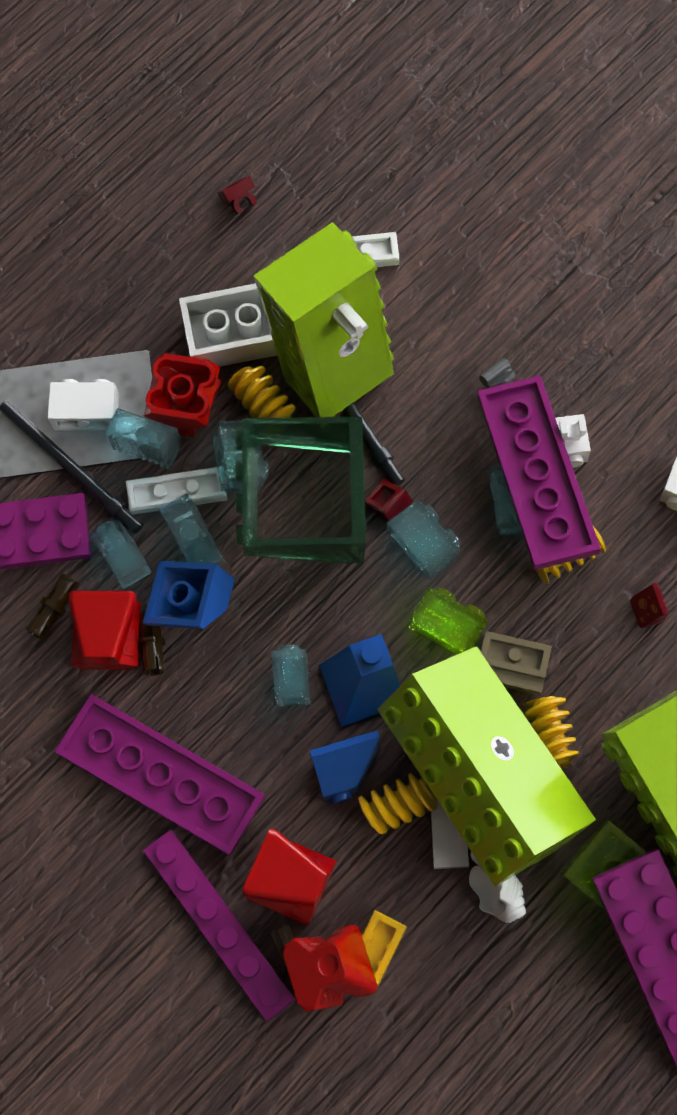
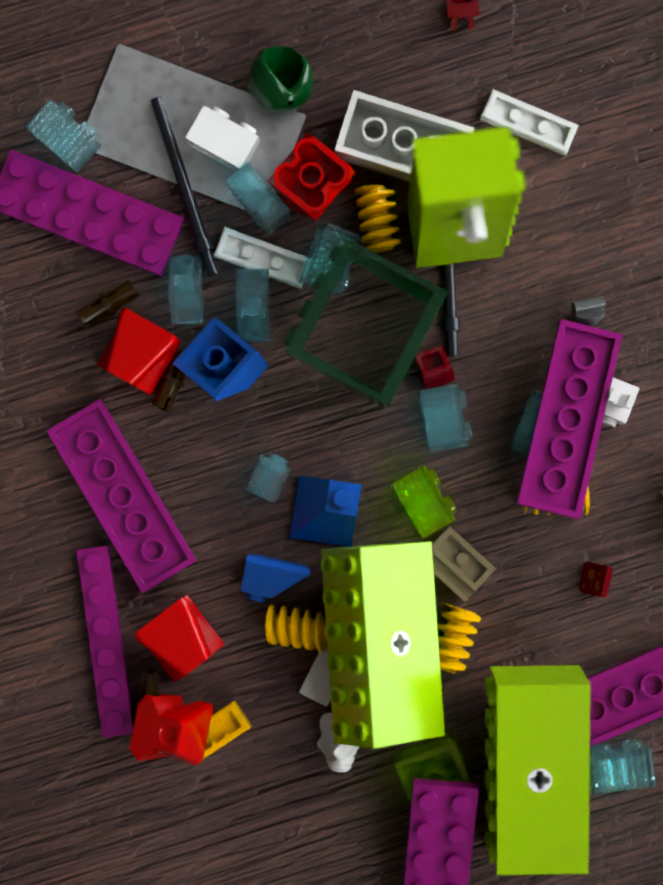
camera: 25 degrees right, 15 degrees up
(109, 327) = (280, 79): none -> dark green piece

